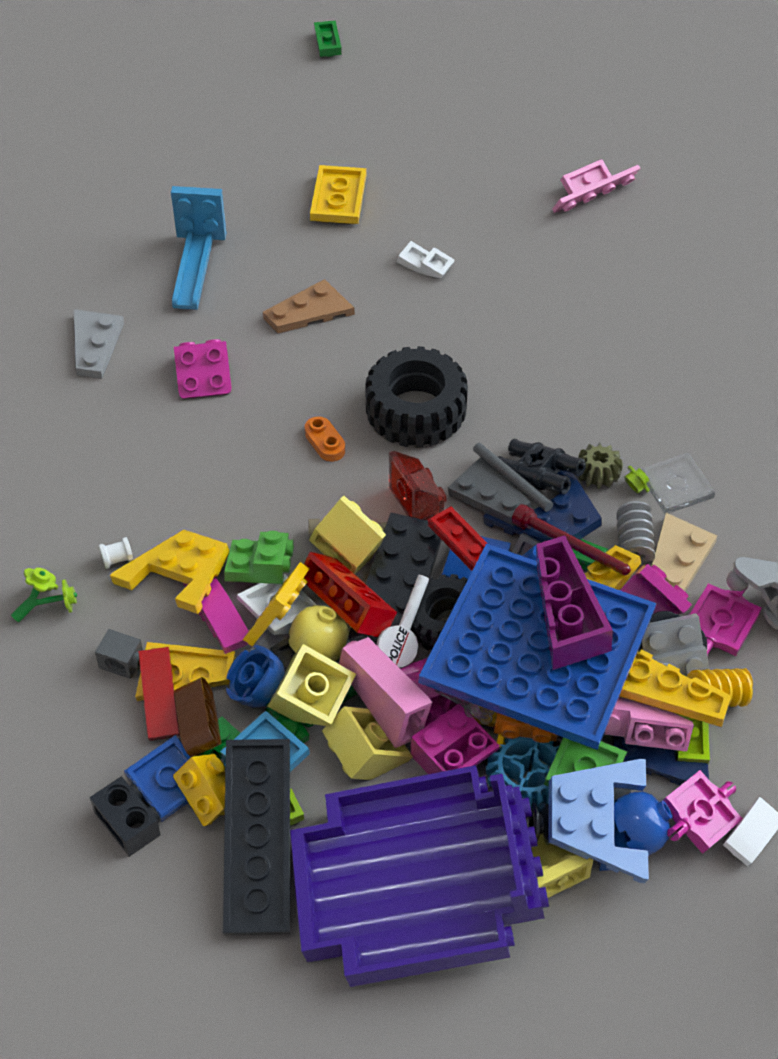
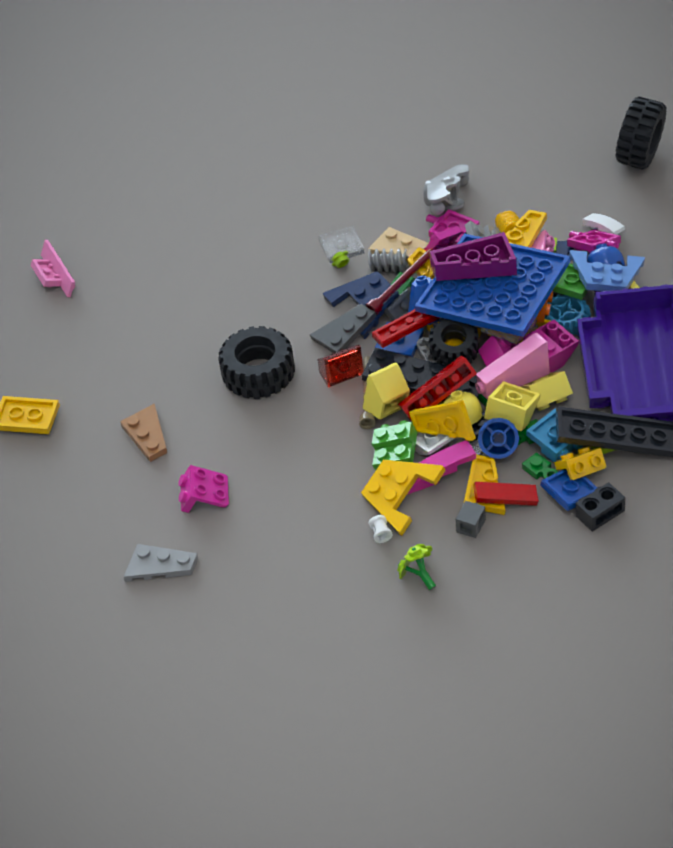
camera: 80 degrees left, 5 degrees down
(197, 717) = (528, 468): reddish brown beam -> none
(200, 220) = (50, 497): dark azure bracket -> none
(320, 435) = (281, 420): orange plate -> none
(399, 641) = (476, 362): white piece -> none
(428, 263) = (112, 363): white slope -> none
(513, 477) = (335, 314): dark grey bar -> none
(542, 463) = (326, 302): black pin -> none
(602, 465) = (326, 276): olive gear -> none

